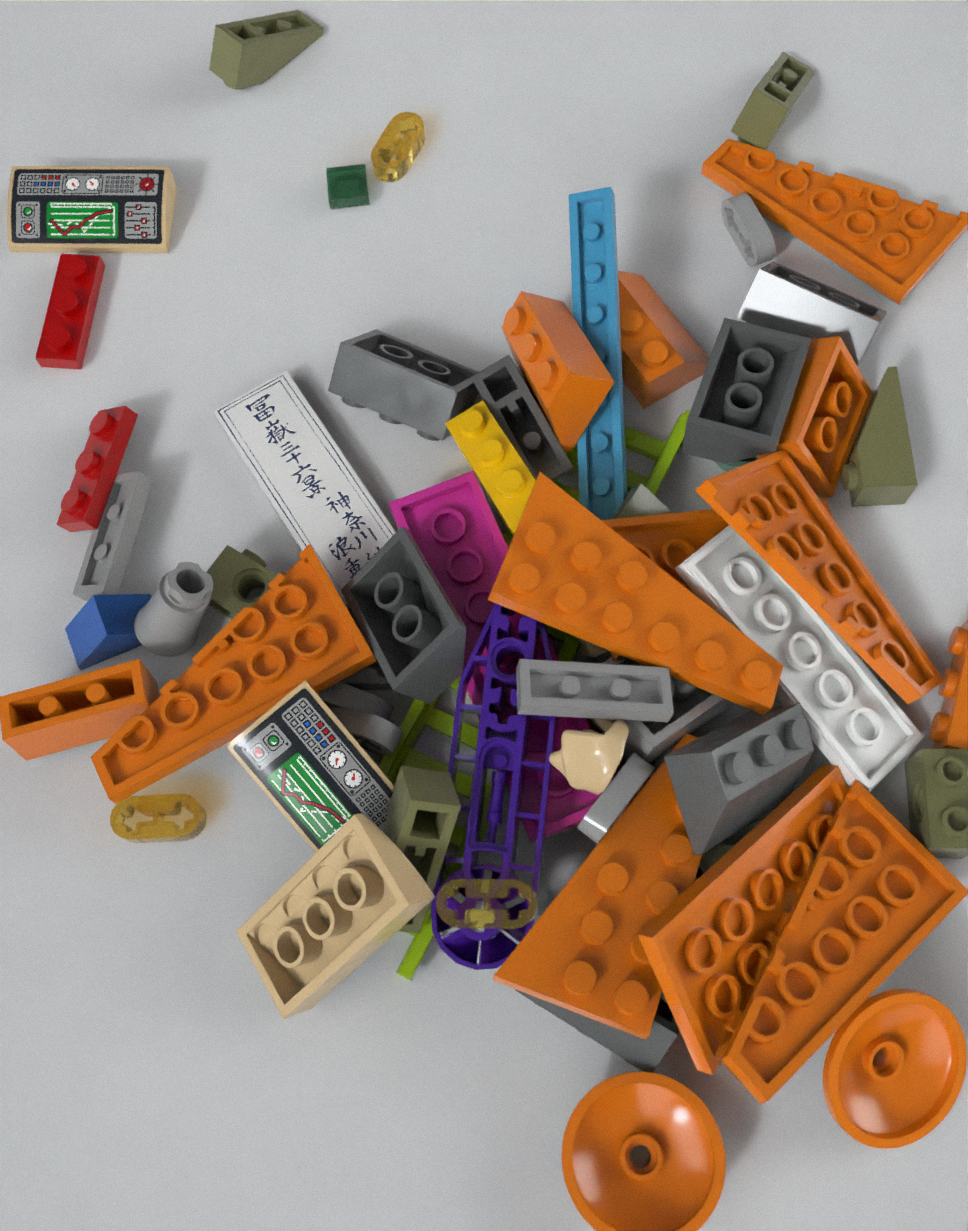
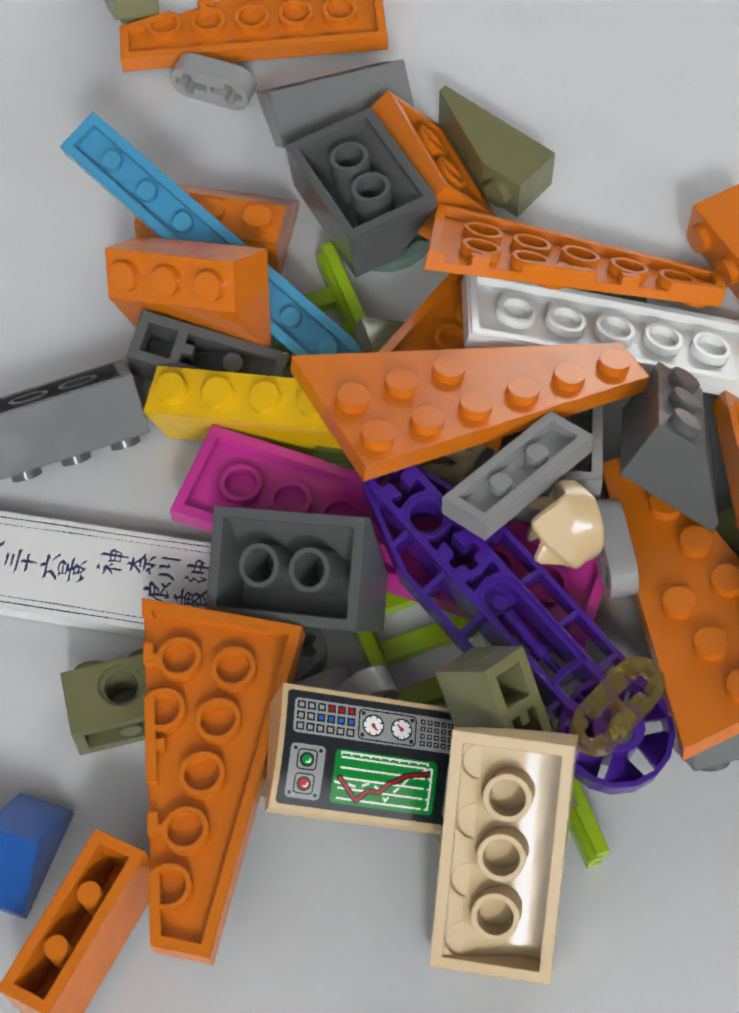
camera: 50 degrees left, 10 degrees down
(158, 829) = (241, 948): clear yellow beam -> none
(174, 612) = (75, 768): light grey plant -> none

